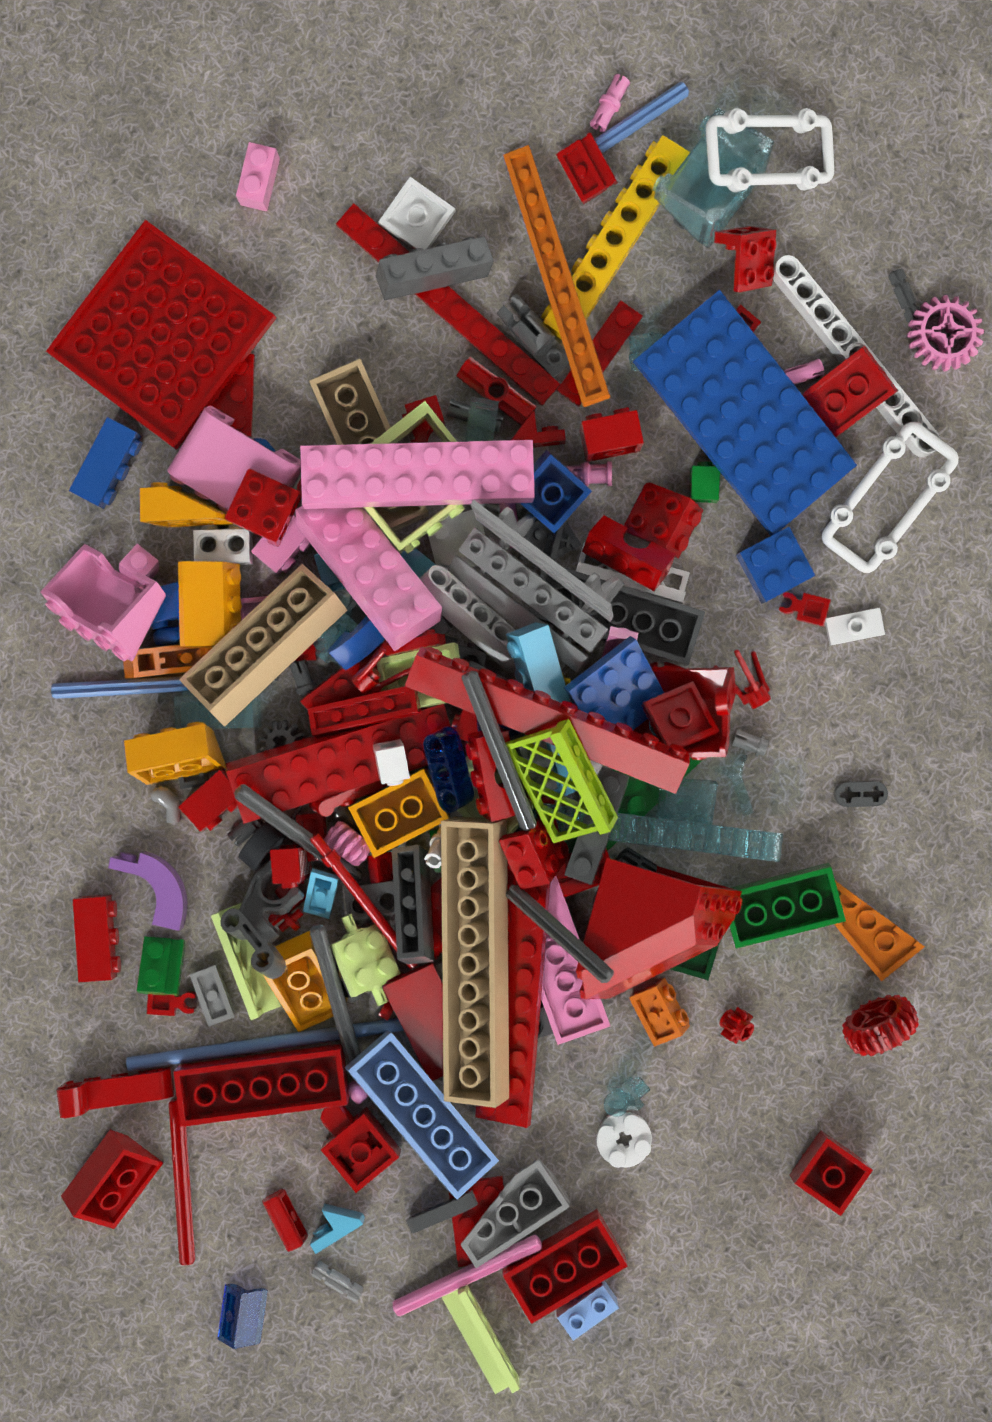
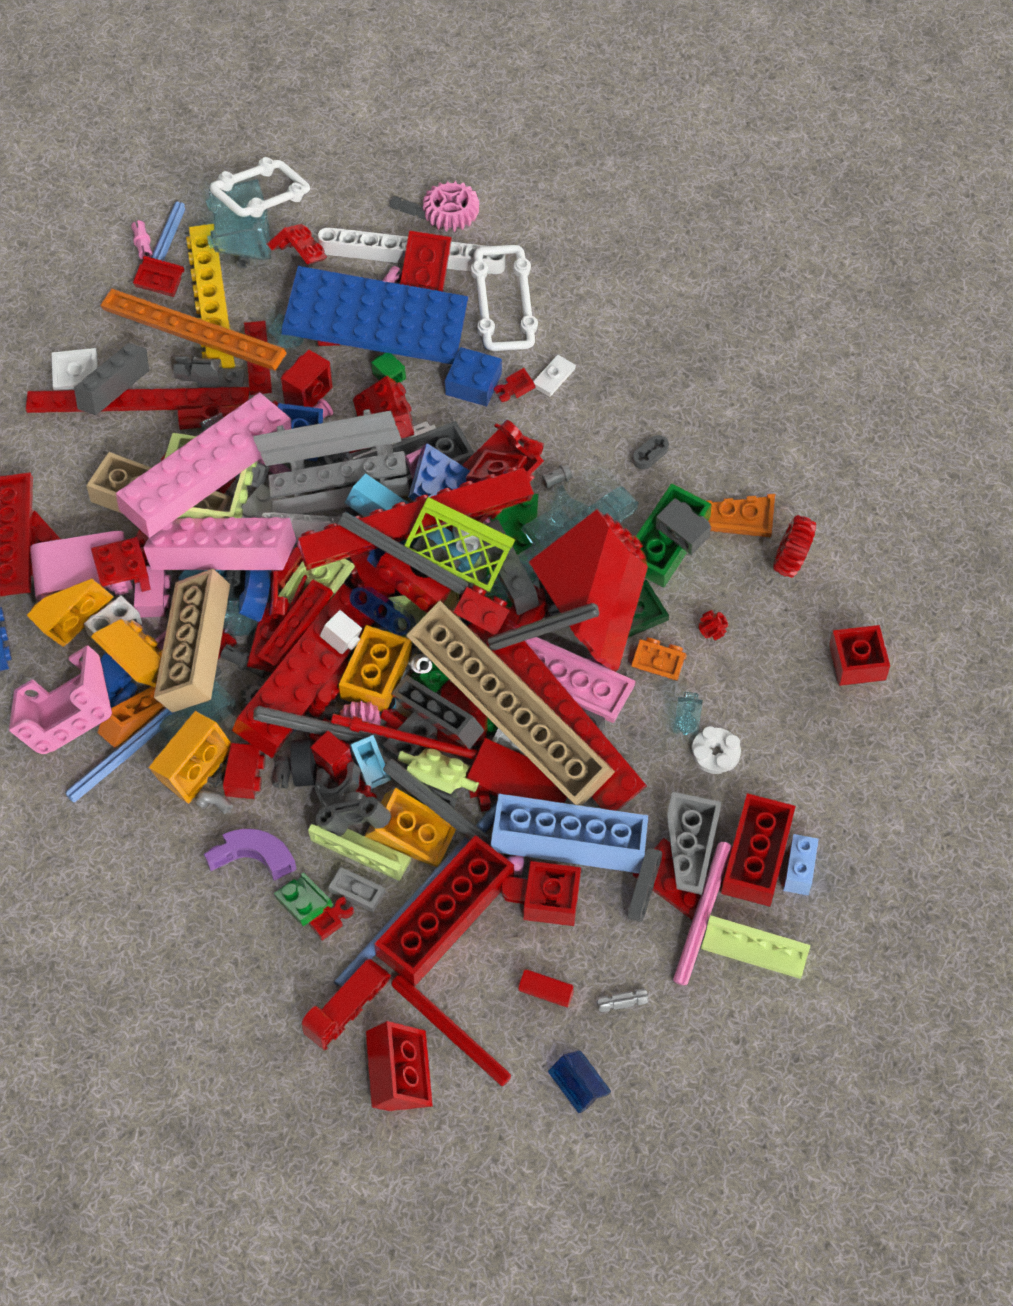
camera: 40 degrees left, 30 degrees down
(96, 938) = (240, 919): red brick -> none
(139, 561) = (62, 670): bright pink brick -> none
(342, 1223) = (585, 955): medium azure slope -> none
(794, 926) = (683, 526): none -> dark grey brick

